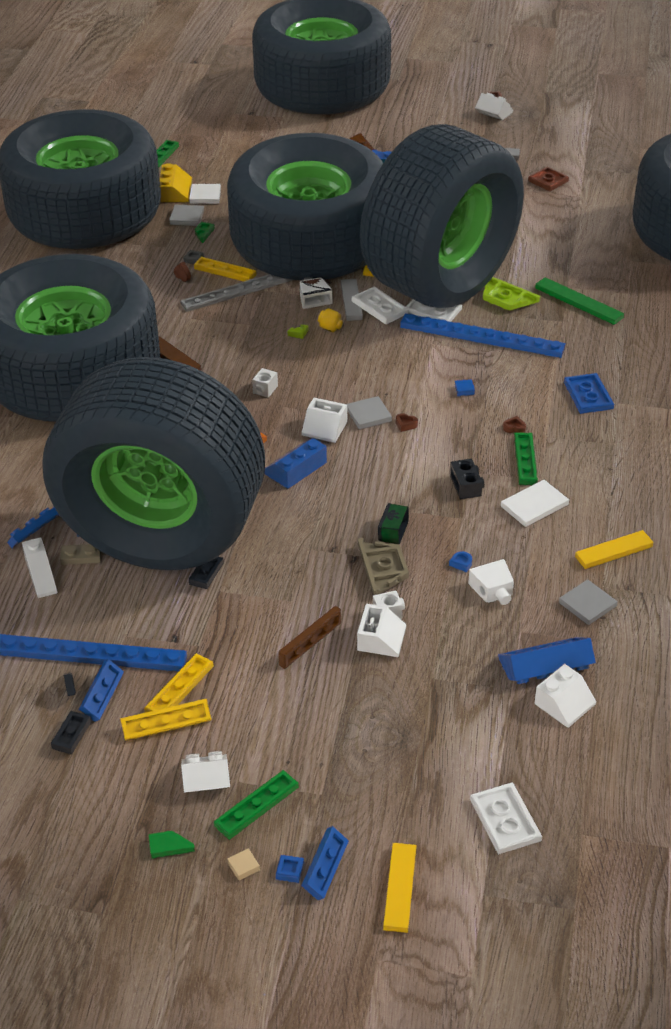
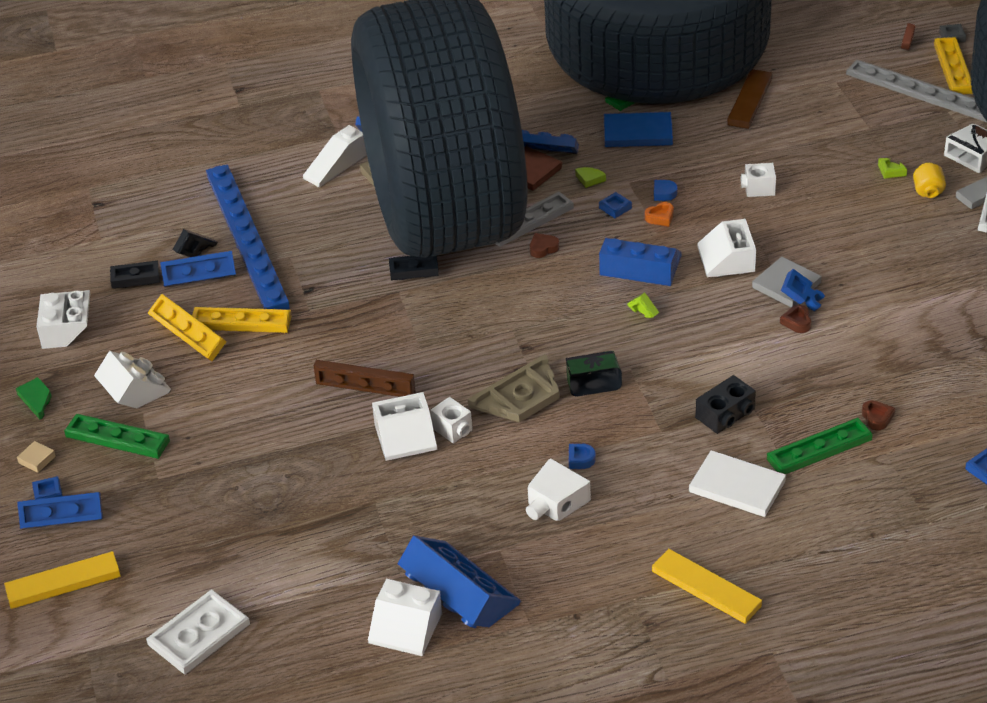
camera: 65 degrees right, 0 degrees up
(93, 792) = (62, 317): none -> white slope
(342, 477) = (643, 305): none -> lime tile
(389, 407) = (800, 290): none -> blue plate
(464, 387) = (913, 343): blue tile -> none
(588, 602) = (589, 591): light grey tile -> none

